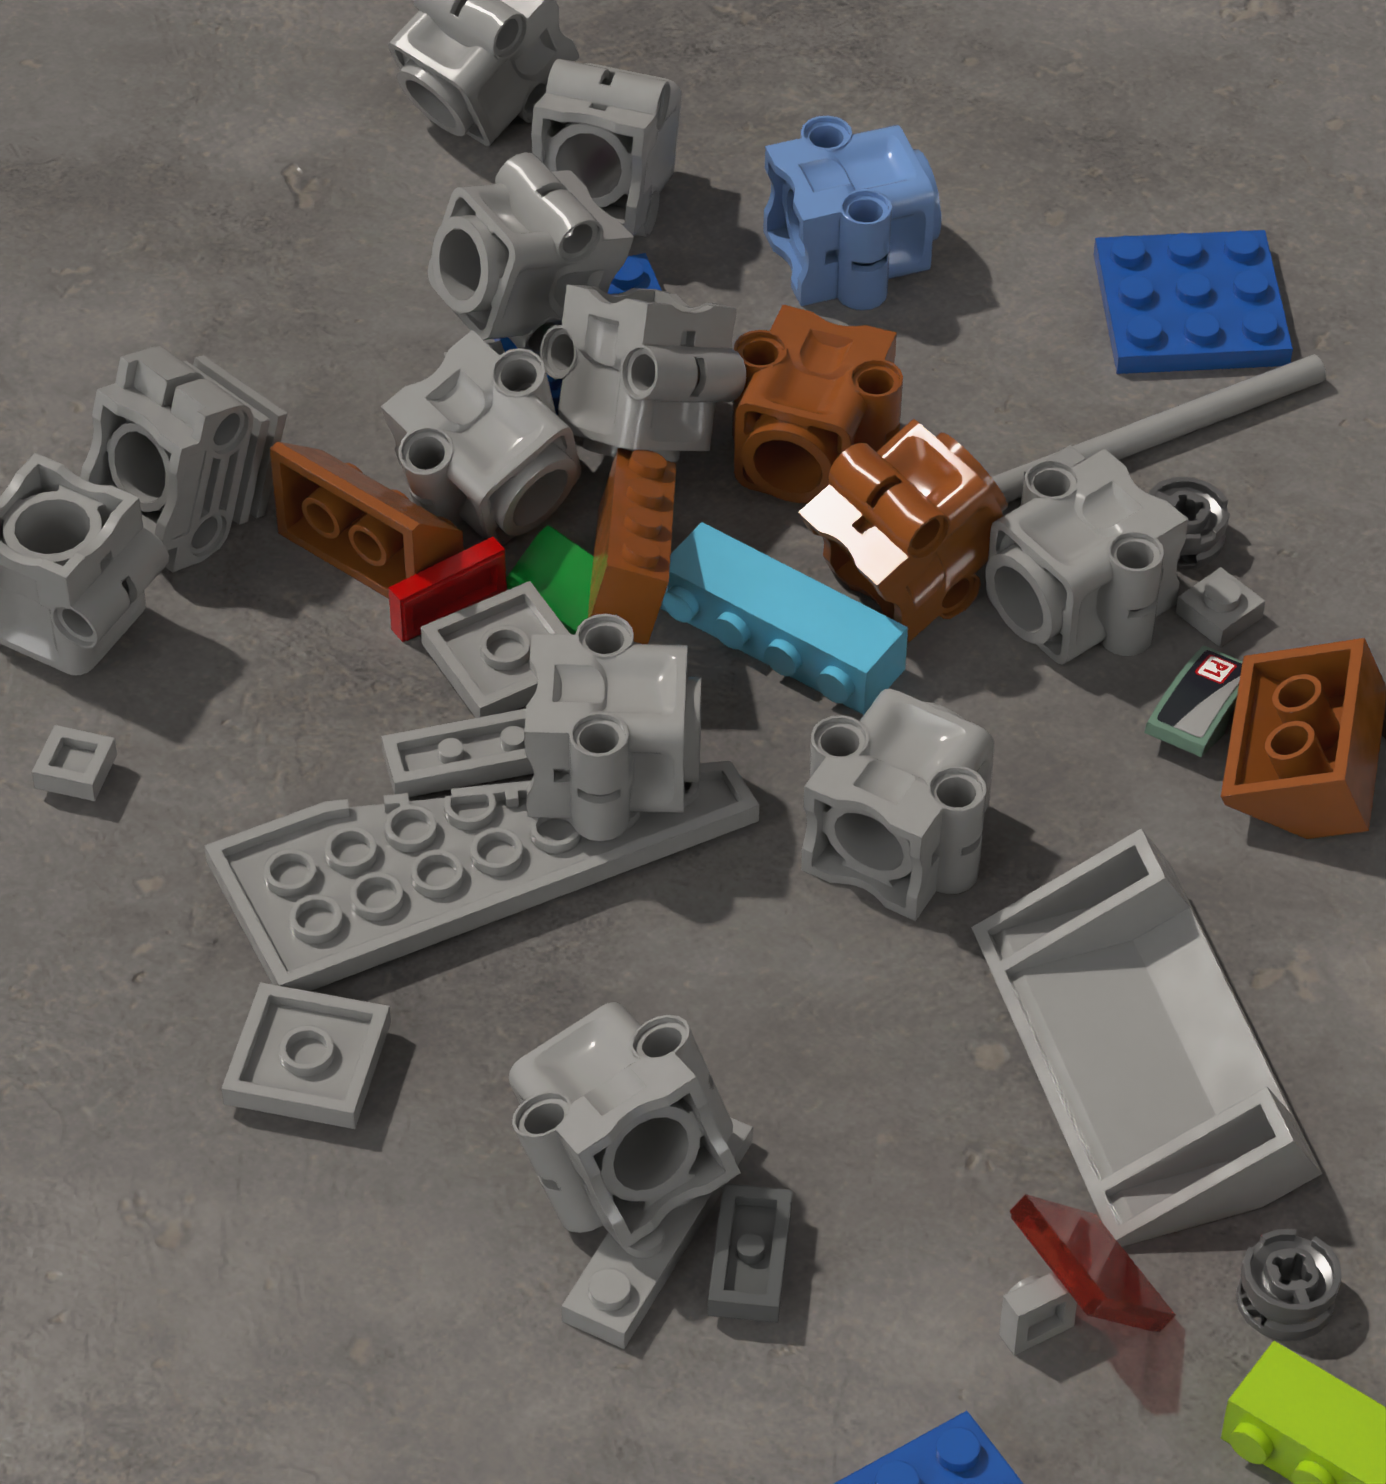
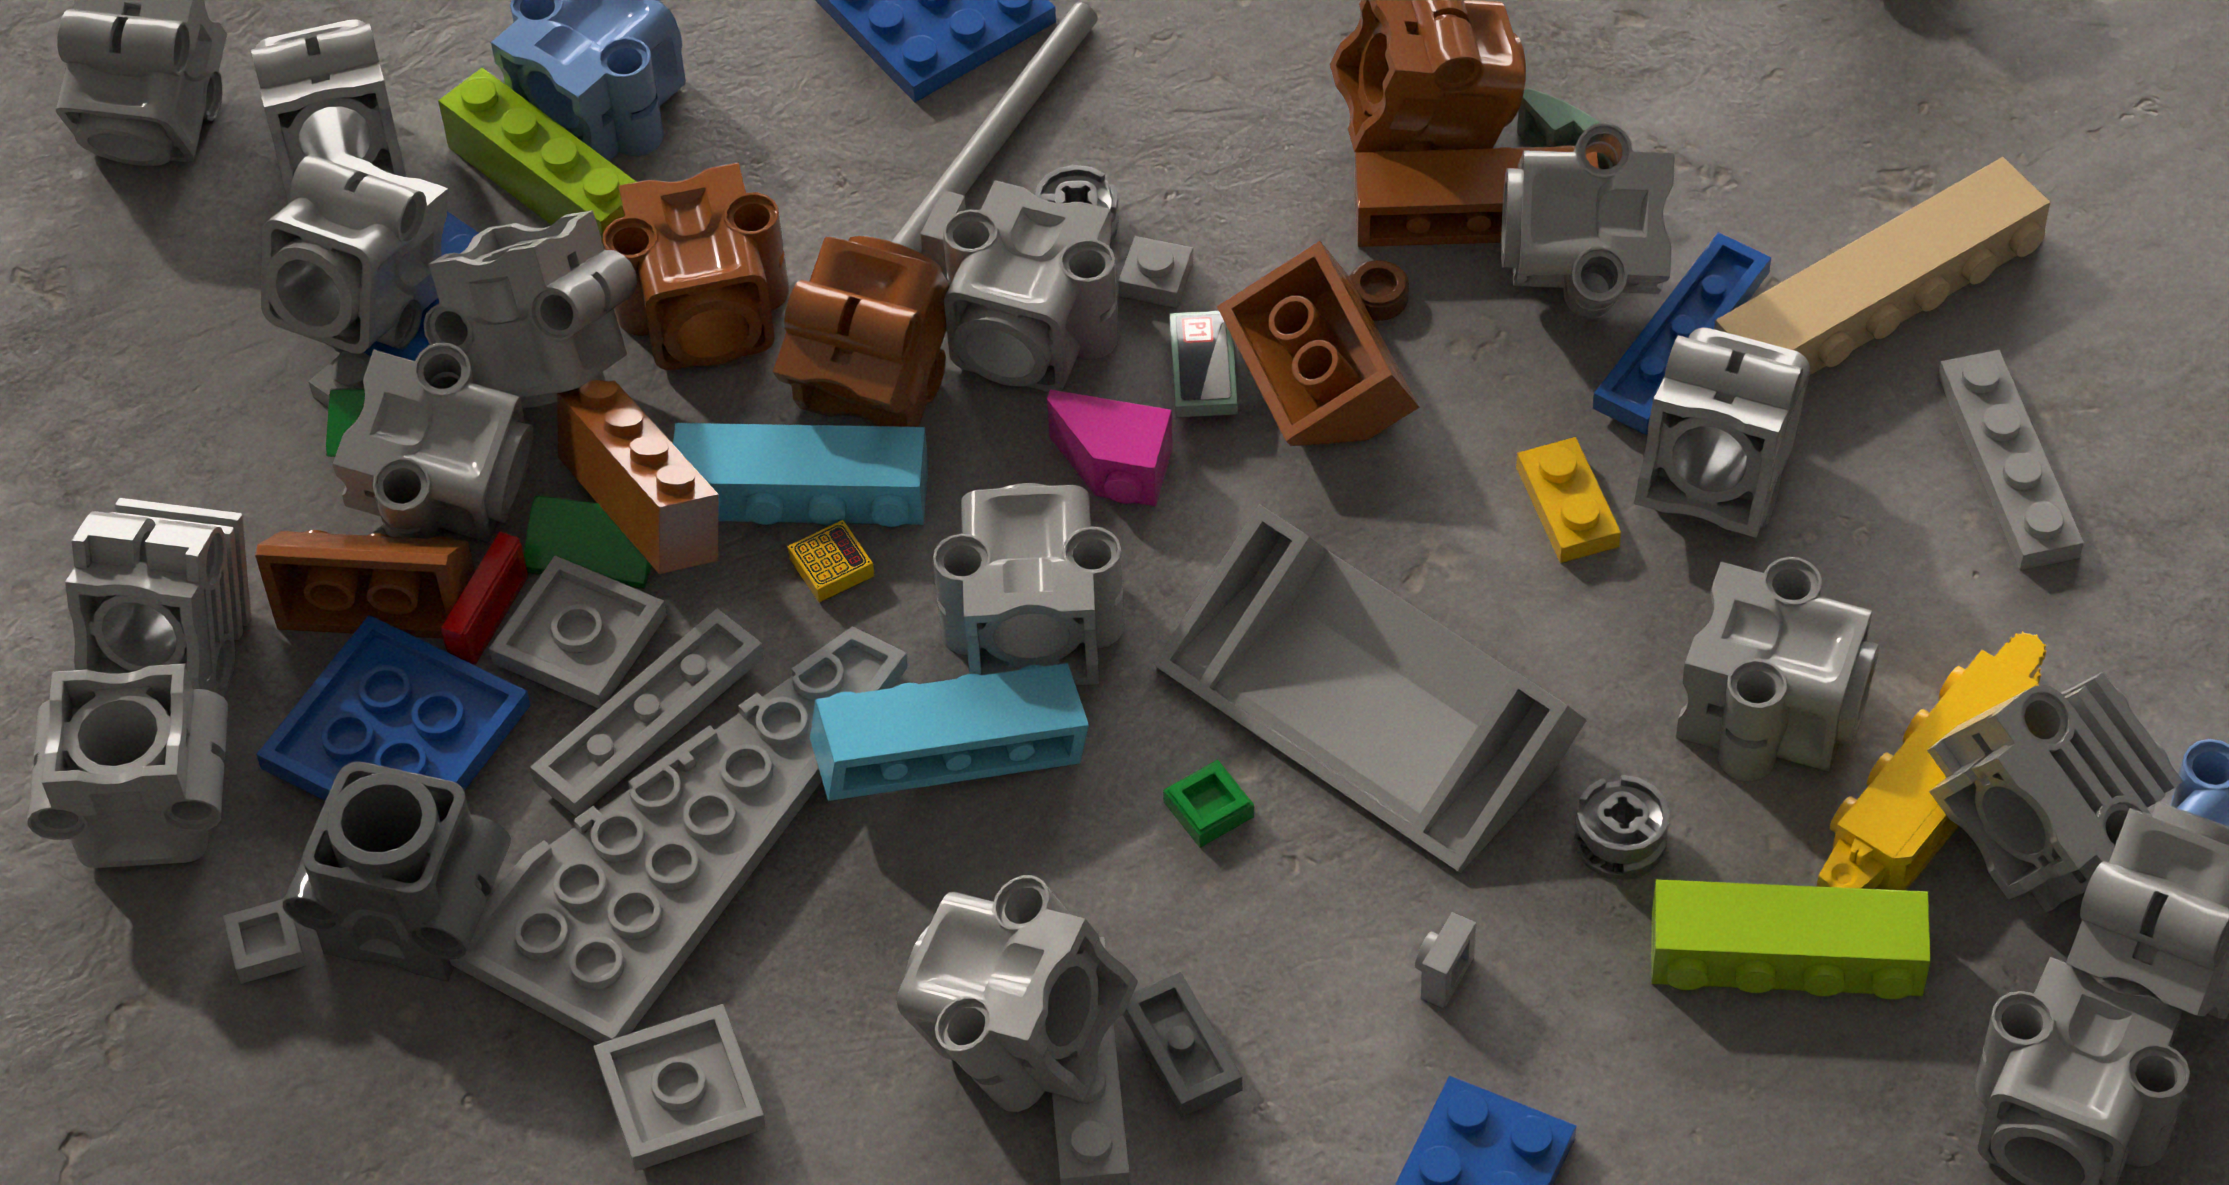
camera: 30 degrees left, 5 degrees up
(201, 752) = (396, 870): none -> dark grey piece
(301, 654) = (393, 707): none -> blue plate
(610, 727) = (748, 651): light grey piece -> none
(741, 884) = (948, 731): none -> medium azure brick
(748, 250) = (529, 152): none -> lime brick
(759, 703) = (831, 561): none -> yellow tile
(932, 1067) = (1208, 803): none -> green tile
(1073, 729) = (1113, 444): none -> dark pink slope
(1091, 1264) = (1468, 897): clear red tile -> none

